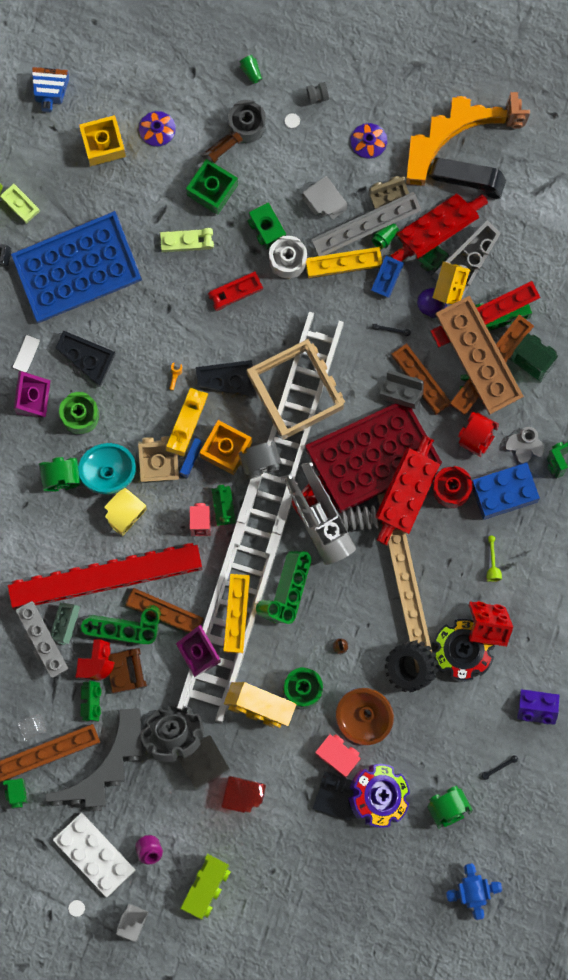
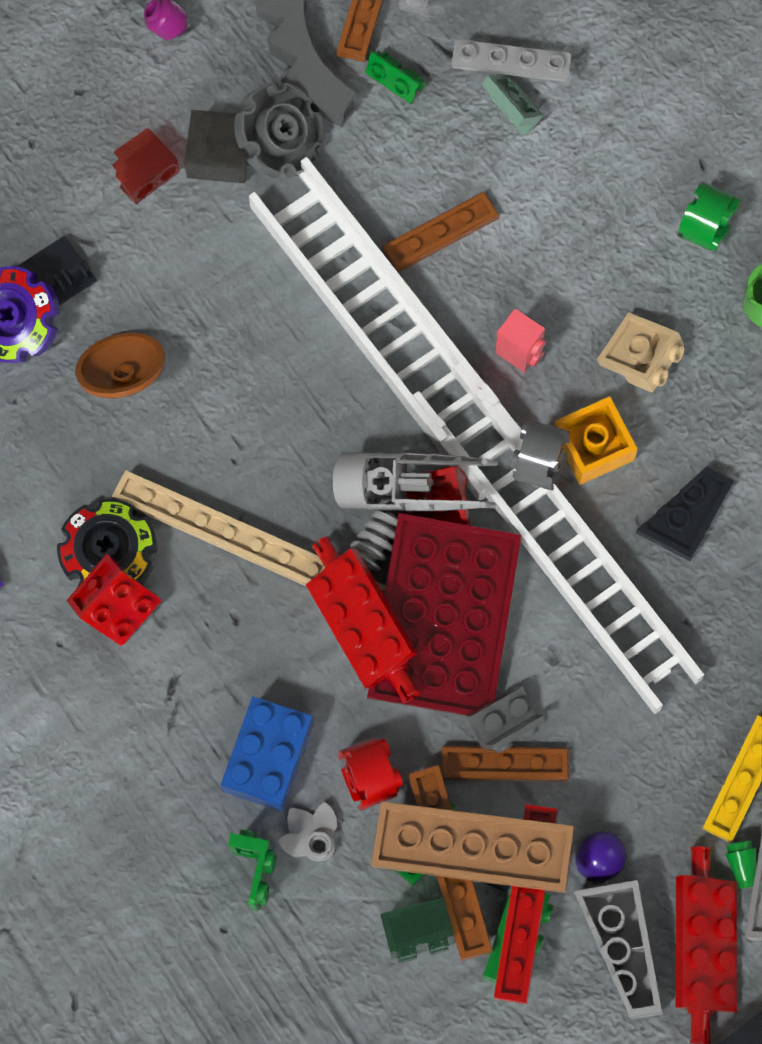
camera: 130 degrees right, 5 degrees down
(98, 666) = (434, 106): red brick -> none
(105, 577) = (534, 192): red brick -> none
(106, 460) = (687, 268): teal dish -> none
(120, 624) = (439, 177): green beam -> none
(120, 676) = (405, 132): reddish brown plate -> none
(124, 511) = (604, 265): light yellow piece -> none
(175, 373) = (742, 452): light orange hand -> none
(186, 422) = (665, 414): yellow hinge -> none
(191, 458) = (610, 387): blue tile -> none
(198, 651) = (352, 224): magenta slope -> none
(206, 887) = (72, 53): lime wedge -> none
(223, 505) = (522, 392): green hinge -> none
(236, 613) = (365, 296): yellow plate -> none
(259, 704) = (231, 245): yellow brick -> none
(289, 590) = (376, 421): green beam -> none
(307, 678) = (198, 316): green brick -> none
(320, 367) = (613, 525): tan window -> none
(336, 646) = (231, 412): reddish brown hinge -> none
(338, 755) = (101, 305): coral brick -> none
(387, 276) = (681, 820): blue plate -> none
(398, 672) = (135, 462): black tyre -> none
(406, 332) = (584, 792): black hinge -> none
(433, 259) = (660, 901): dark green bracket -> none
(447, 477) = (339, 677): red brick -> none
(451, 283) = (603, 887): yellow hinge -> none
(493, 574) = (174, 660): lime hinge -> none

